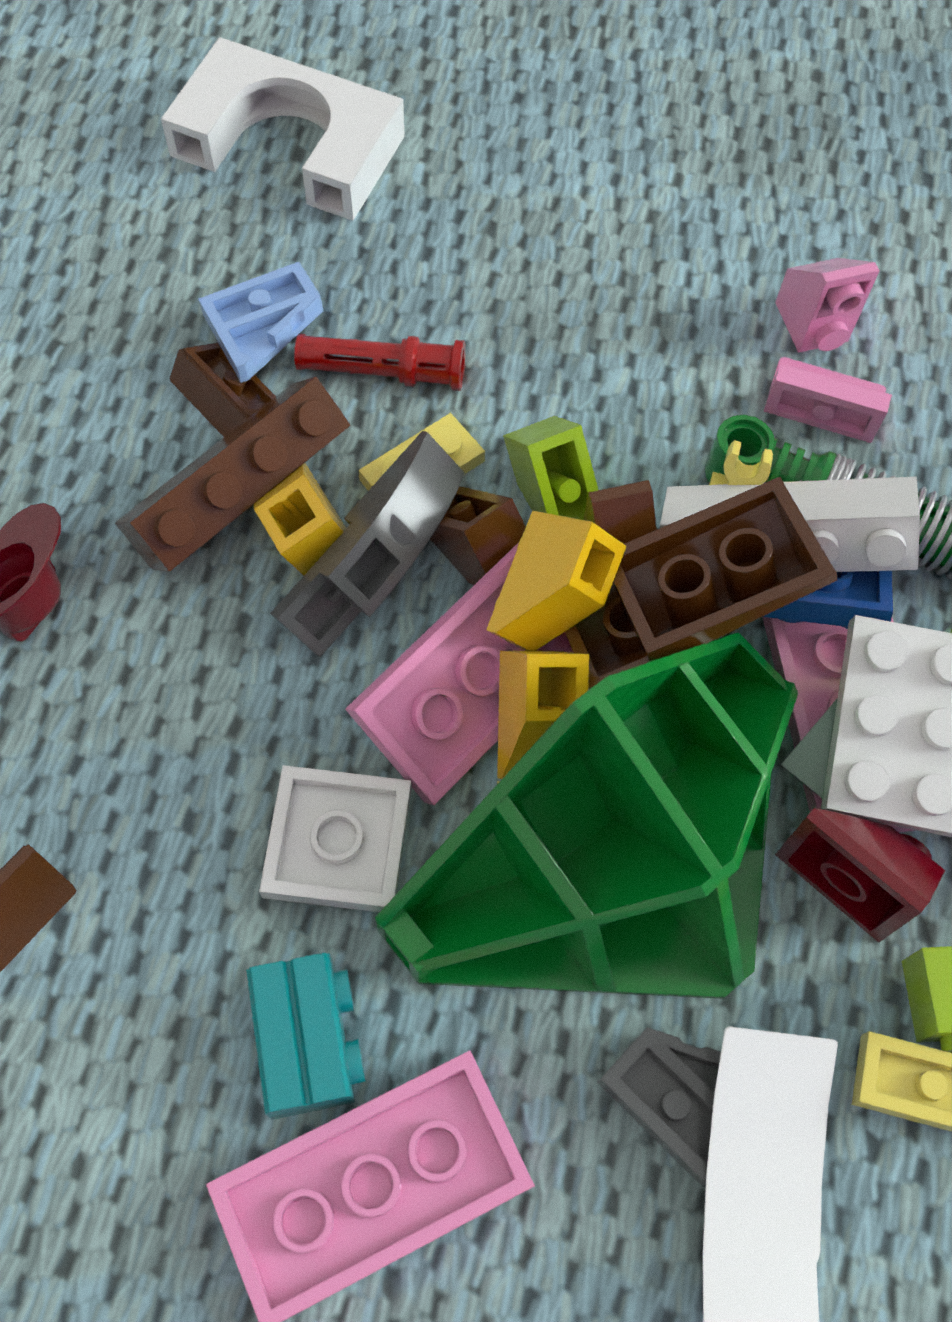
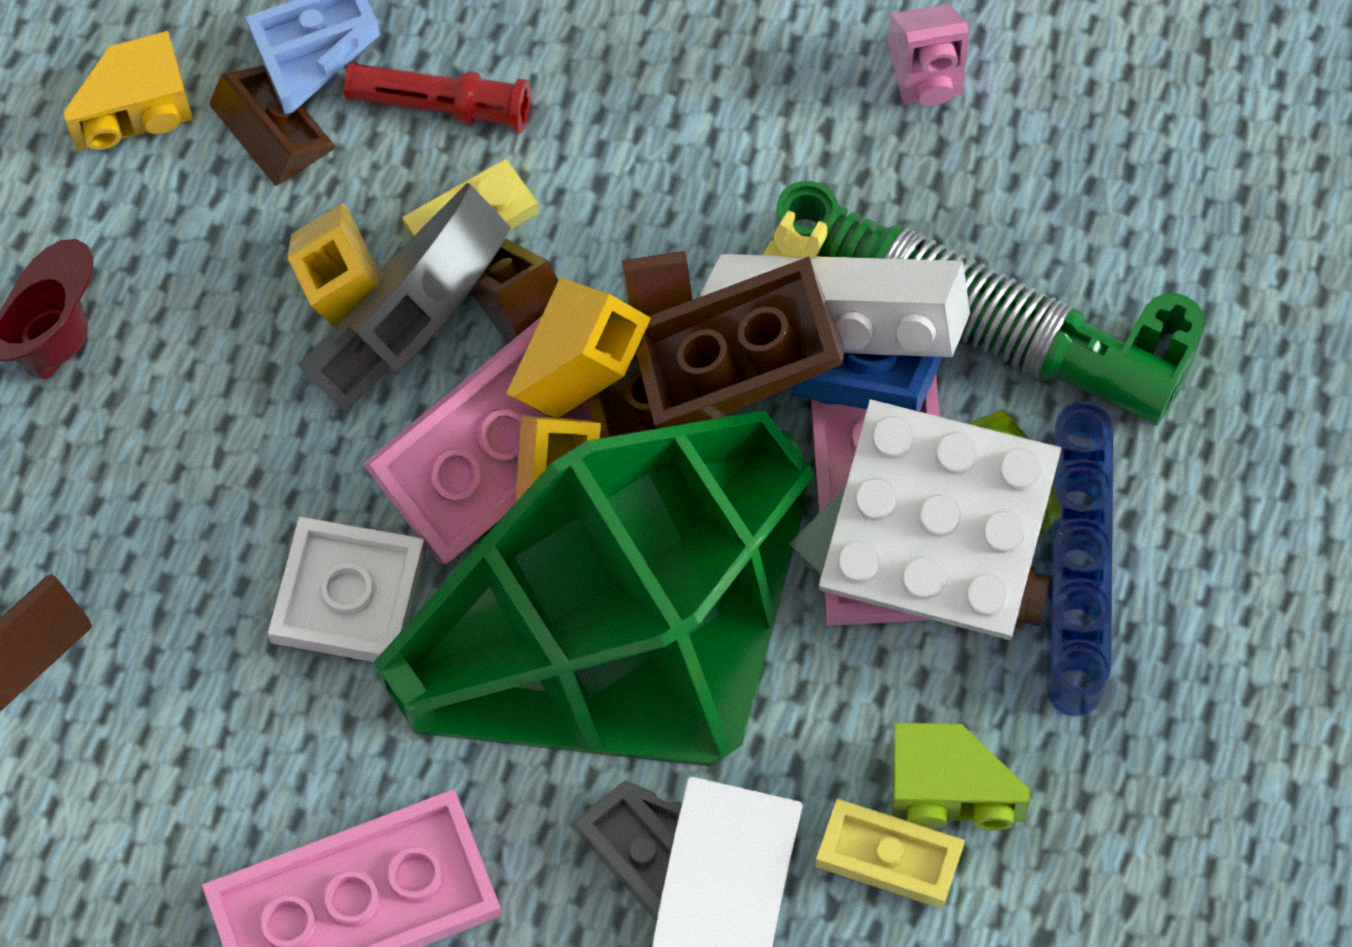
camera: 10 degrees right, 0 degrees up
(91, 370) = (128, 94): none -> yellow slope
(233, 474) = (270, 217): reddish brown brick -> none
(302, 1035) = (299, 765): teal brick -> none
(552, 466) = (603, 228): lime slope -> none
(827, 399) = (920, 160): bright pink panel -> none
(863, 869) = (857, 647): dark red slope -> none

